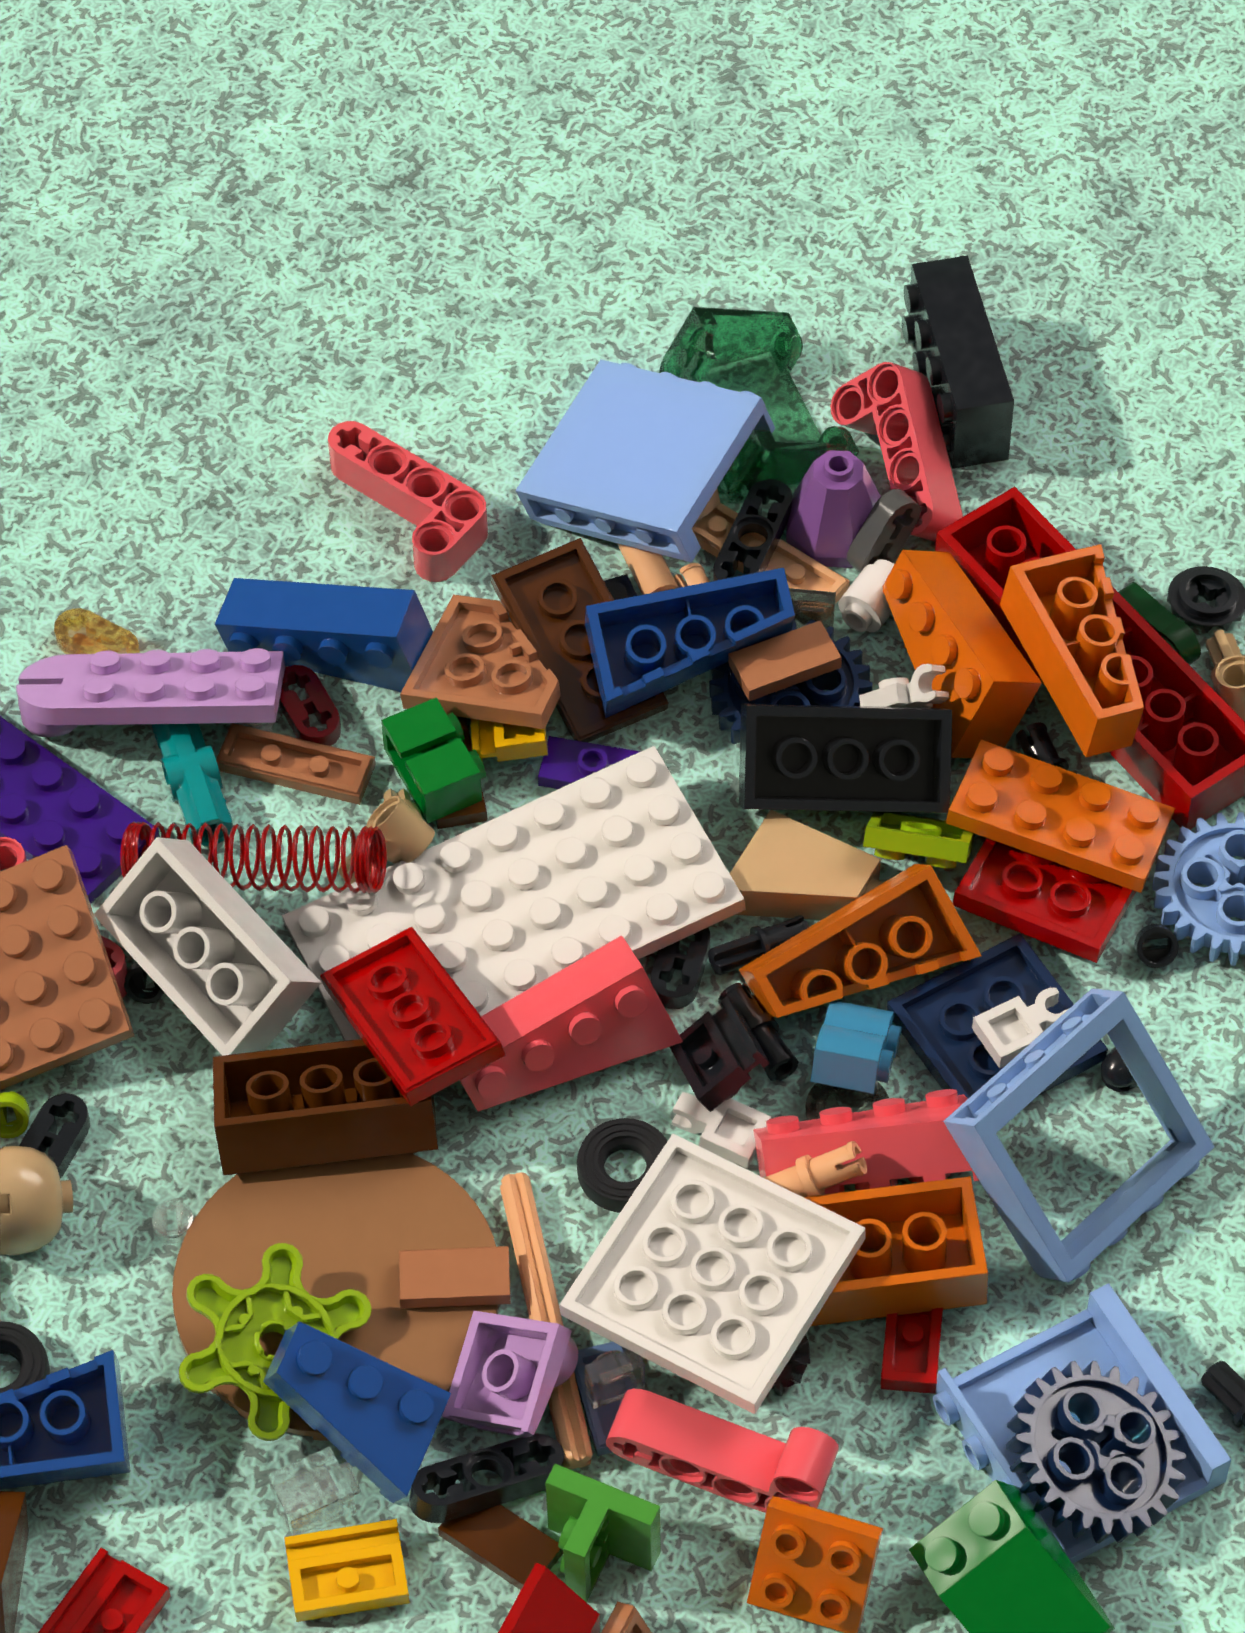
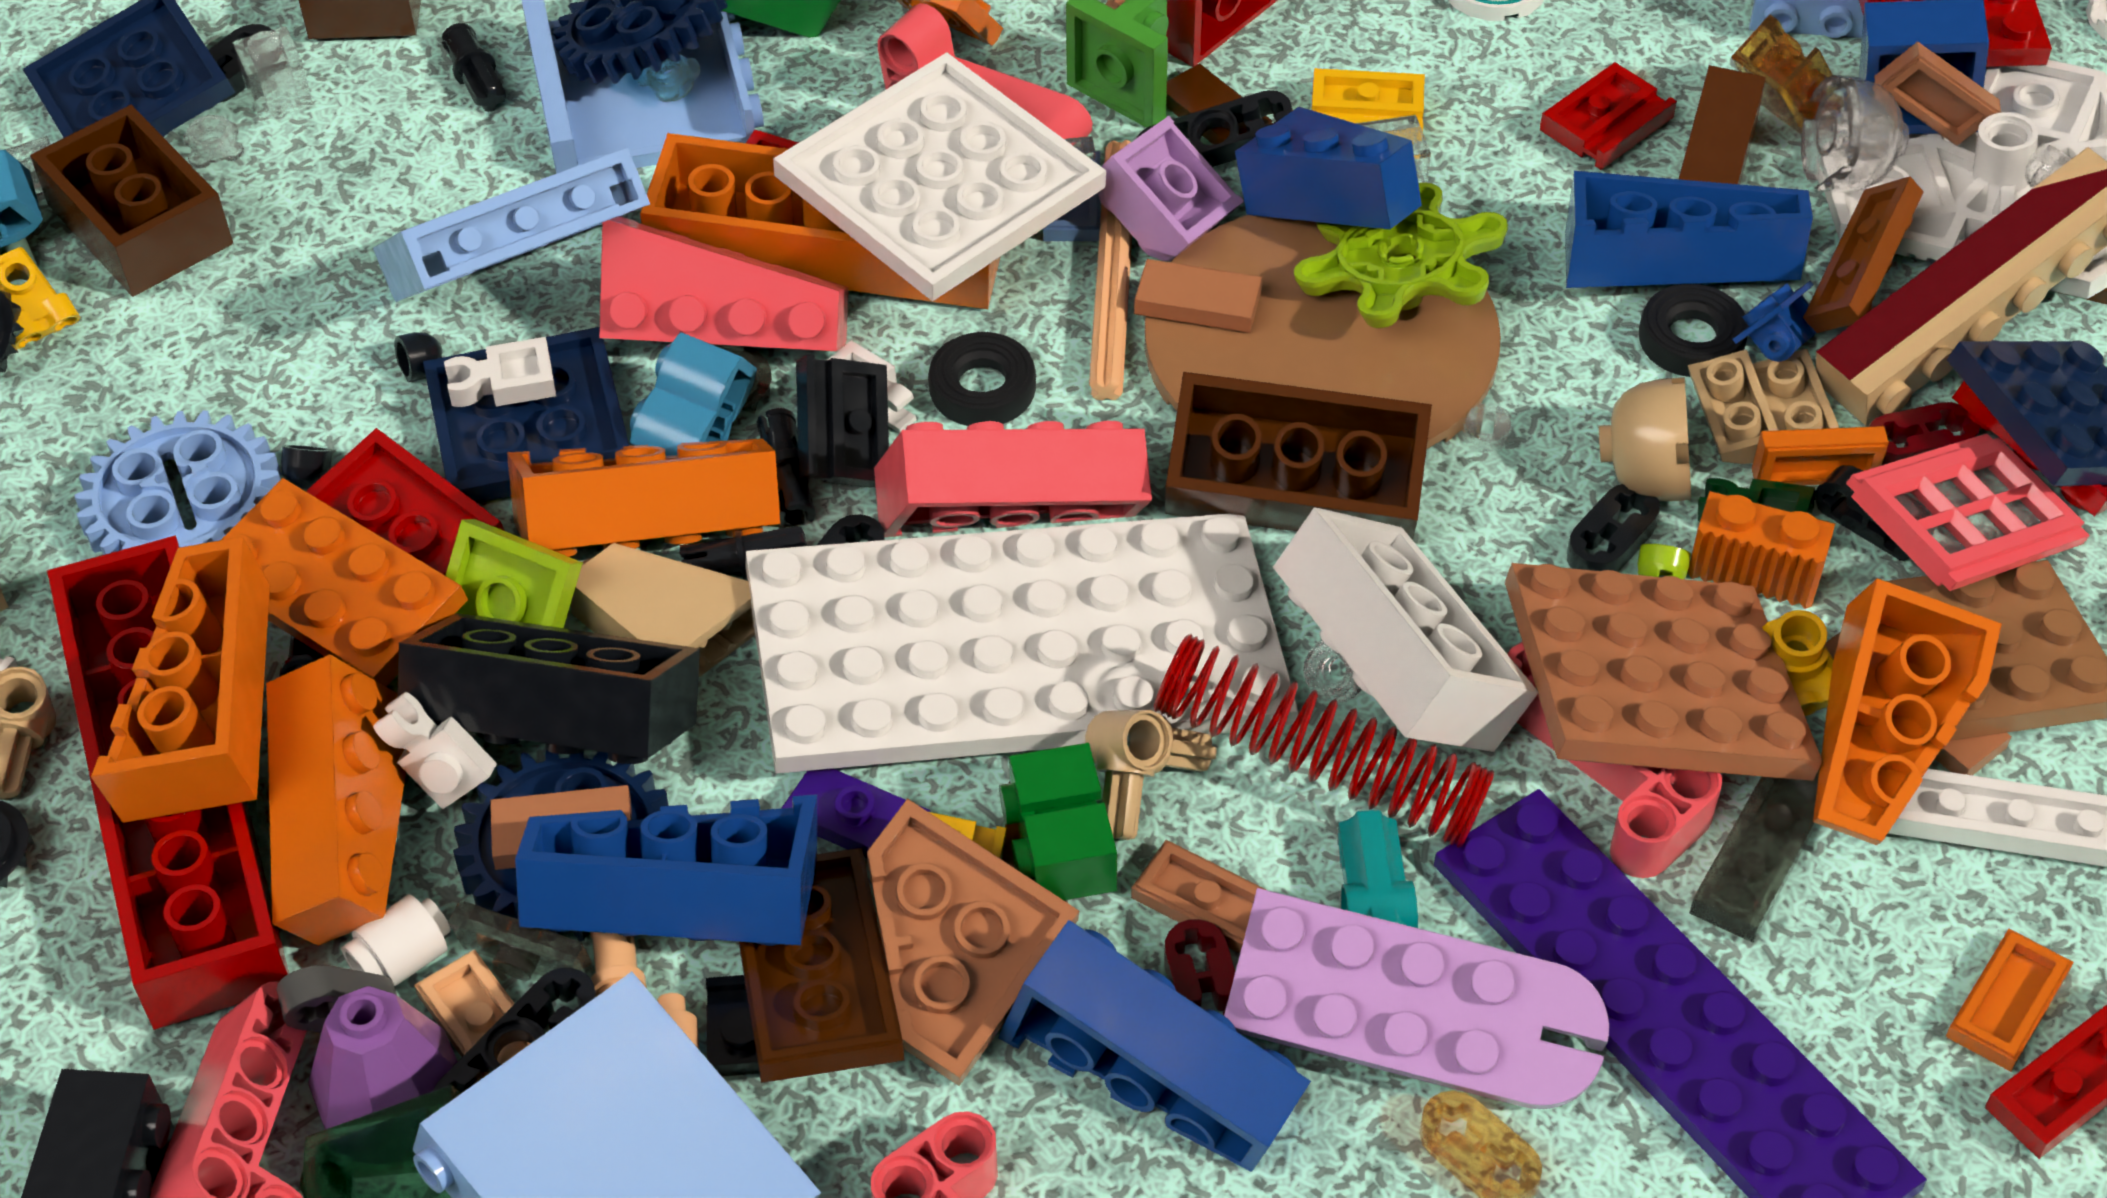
camera: 165 degrees left, 5 degrees down
(412, 1016) = (1179, 487): red tile -> none
(815, 1174) = (802, 251): light nougat pin -> none
(1168, 626) = (70, 808): dark green piece -> none

